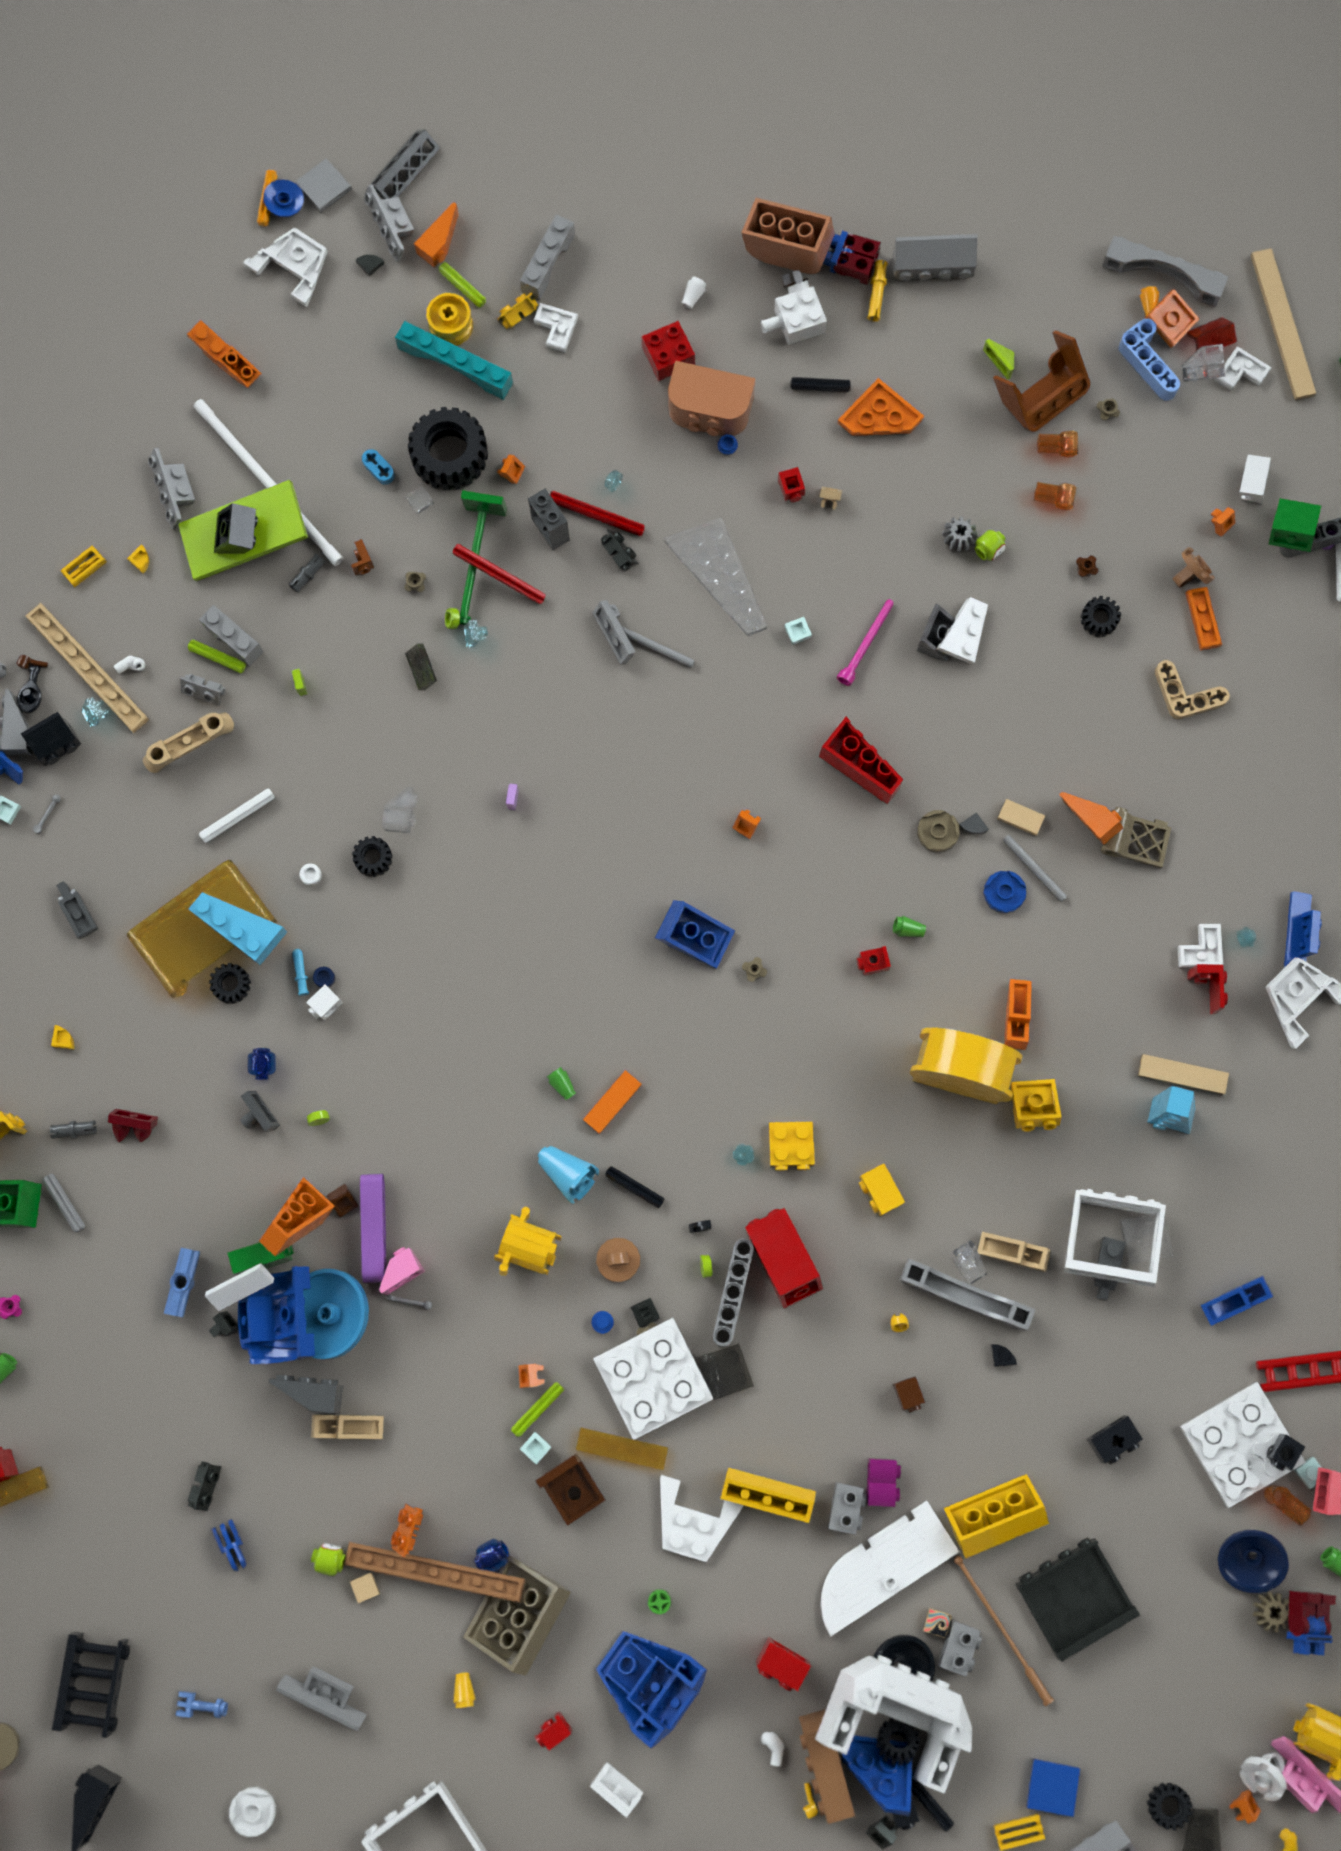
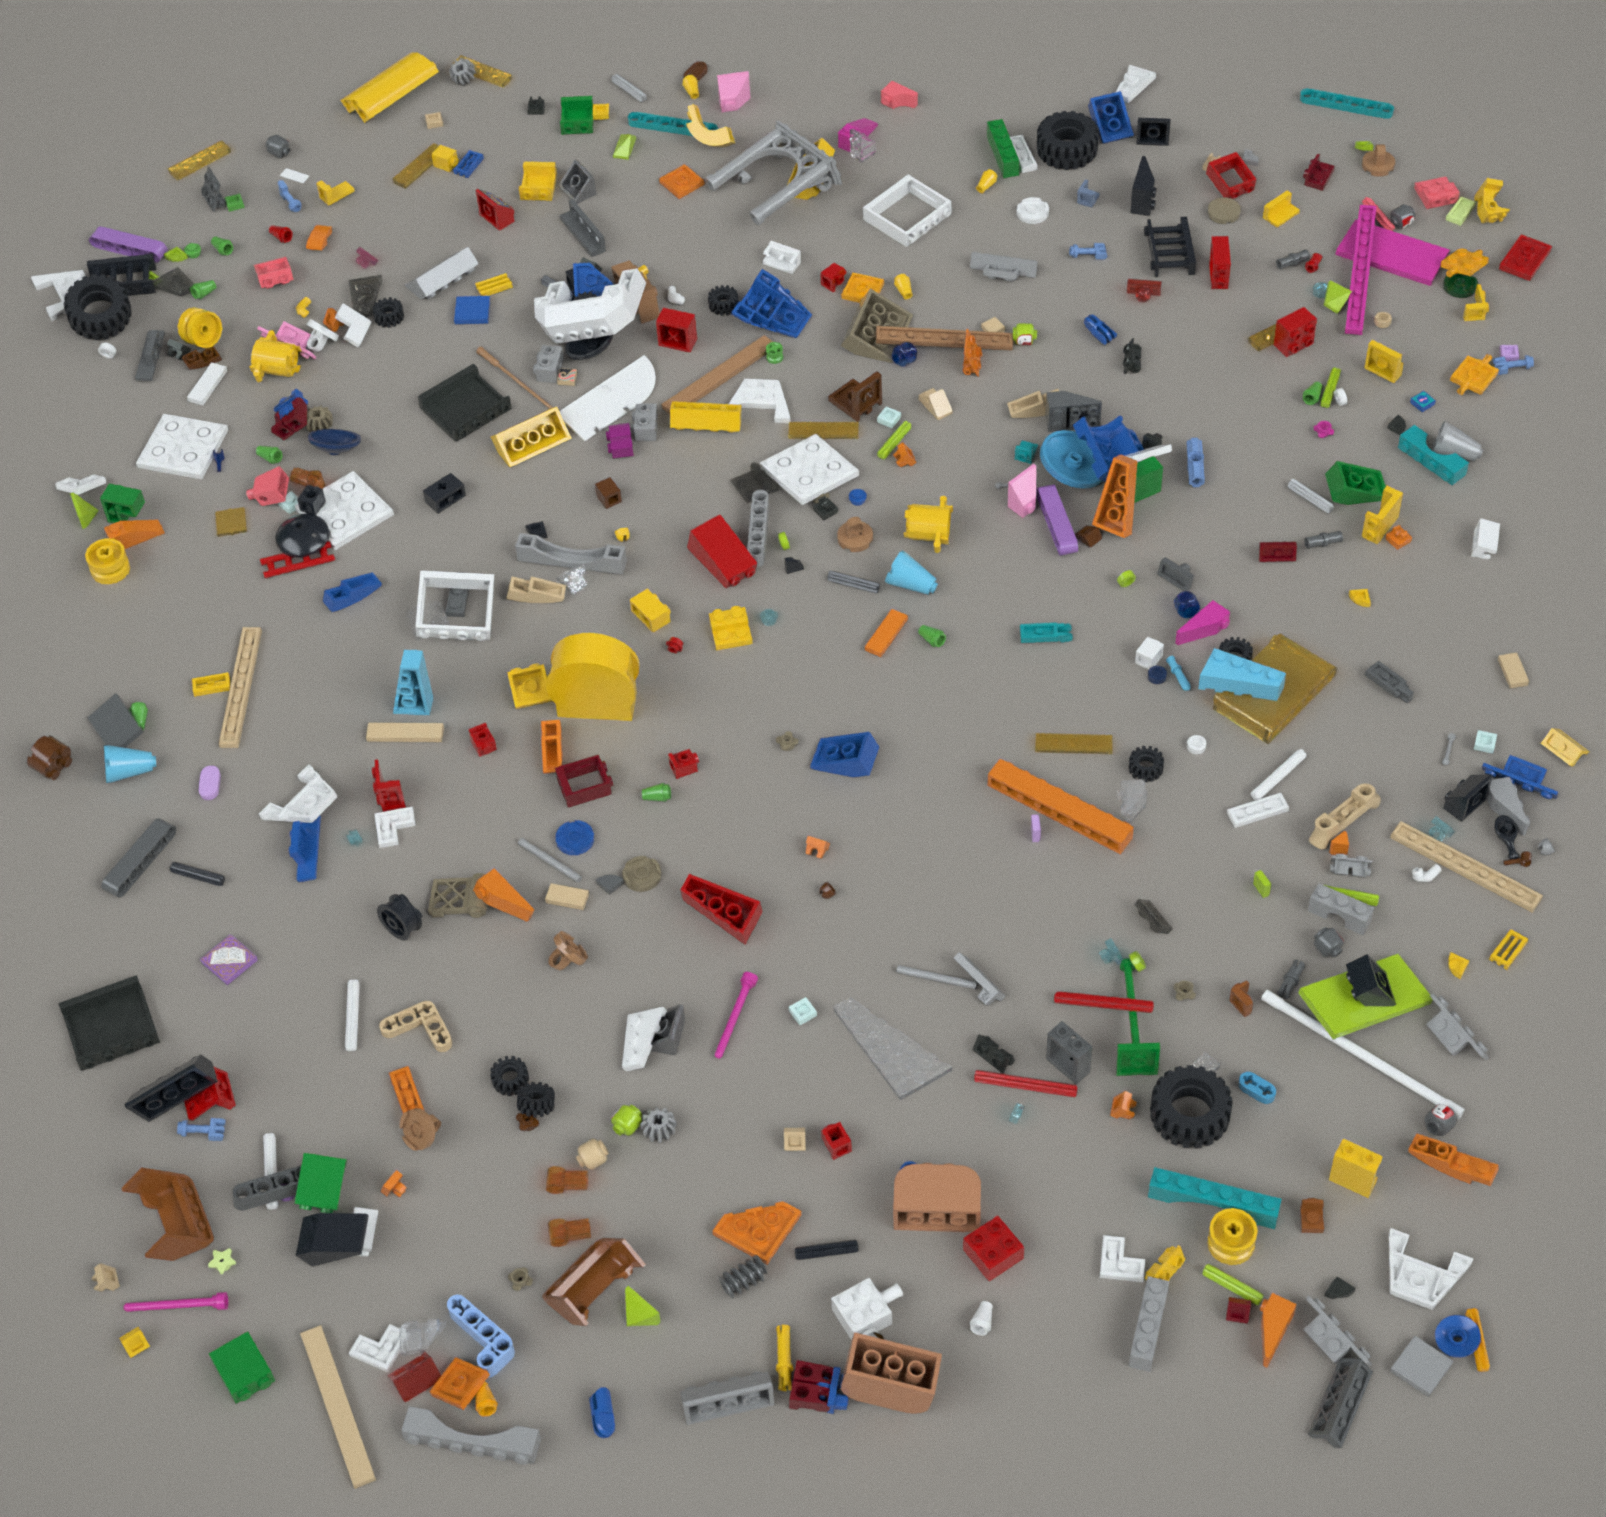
camera: 170 degrees right, 25 degrees down
(38, 1625) = (1219, 262): none -> red window
(151, 1606) = (1143, 289): none -> clear red tile
(169, 1821) = (1085, 196): none -> sand blue panel
(201, 710) = (1339, 844): none -> orange slope
(220, 396) = (1440, 1120): none -> dark grey head
(246, 1033) = (1204, 624): none -> dark pink slope
(256, 602) = (1328, 942): none -> dark grey head
(273, 778) = (1257, 810): none -> white tile
(318, 353) = (1355, 1168): none -> yellow panel
(371, 332) = (1312, 1215): none -> dark orange bracket
(380, 1351) = (1026, 451): none -> teal bracket
(434, 1060) = (1045, 632): none -> teal hinge
(441, 903) = (1073, 743): none -> clear yellow tile
(465, 257) = (1238, 1310): none -> dark red tile
(471, 1462) = (936, 403): none -> tan slope
(479, 819) = (1060, 806): none -> orange brick
(518, 1704) = (859, 285): none -> light orange tile
(720, 1732) = (722, 306): none -> black tyre
(737, 1579) = (721, 373): none -> medium nougat tile
(746, 767) = (827, 890): none -> reddish brown hinge
(860, 1133) = (674, 645): none -> red plate
(903, 363) = (741, 1277): none -> dark grey piece
(1008, 951) = (580, 768): none -> dark red window
(1027, 515) = (592, 1154): none -> tan head
(1027, 739) = (568, 951): none -> medium nougat tile
(1047, 269) = (602, 1413): none -> blue arm
(1087, 588) = (535, 1099): none -> black tyre
(1091, 1045) = (482, 739): none -> red brick
(1203, 812) = (399, 916): none -> black wheel
(1213, 1786) = (356, 322): none -> white tile
(1256, 718) = (352, 1015): none -> white axle
(1284, 1408) = (302, 535): none -> black dish
(1286, 467) = (331, 1237): none -> black slope

